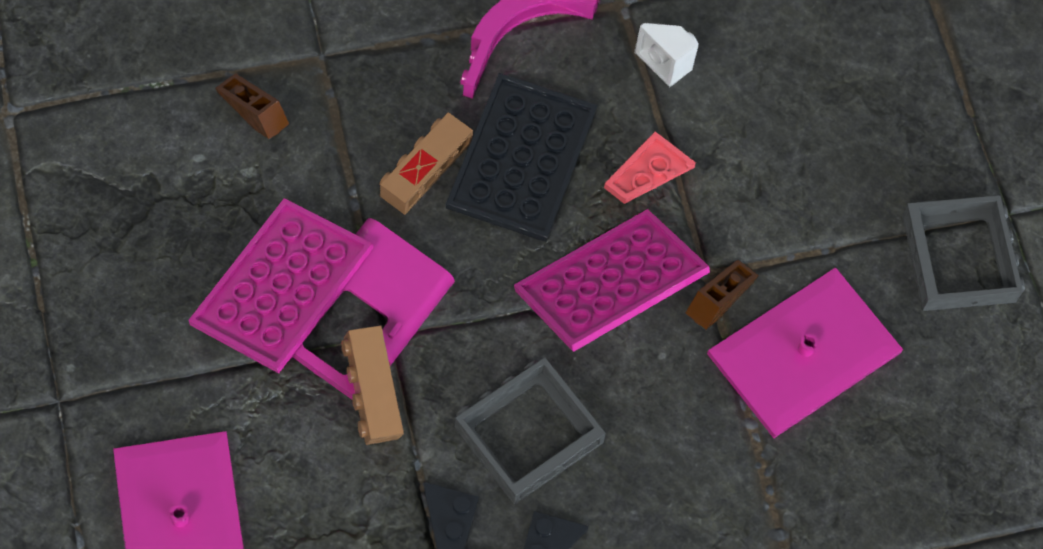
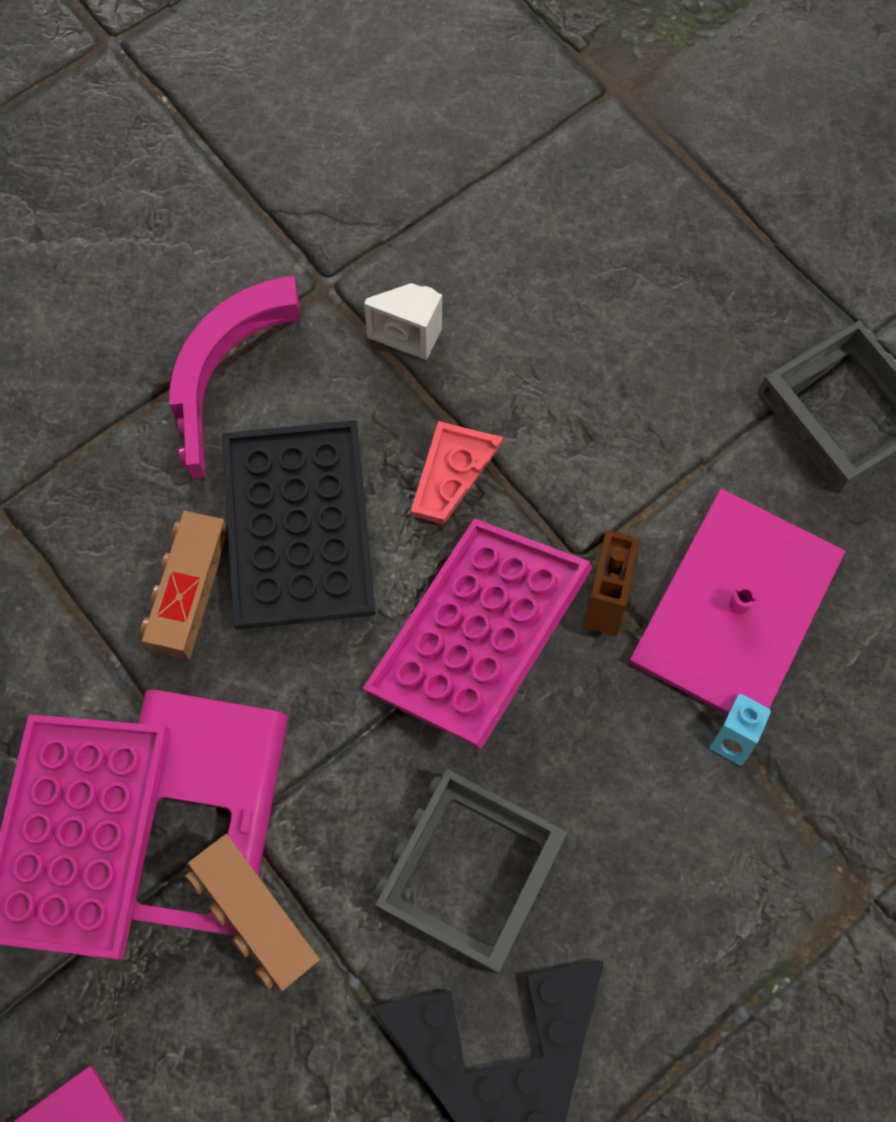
camera: 20 degrees left, 5 degrees up
(762, 425) = (742, 725): none -> medium azure bracket

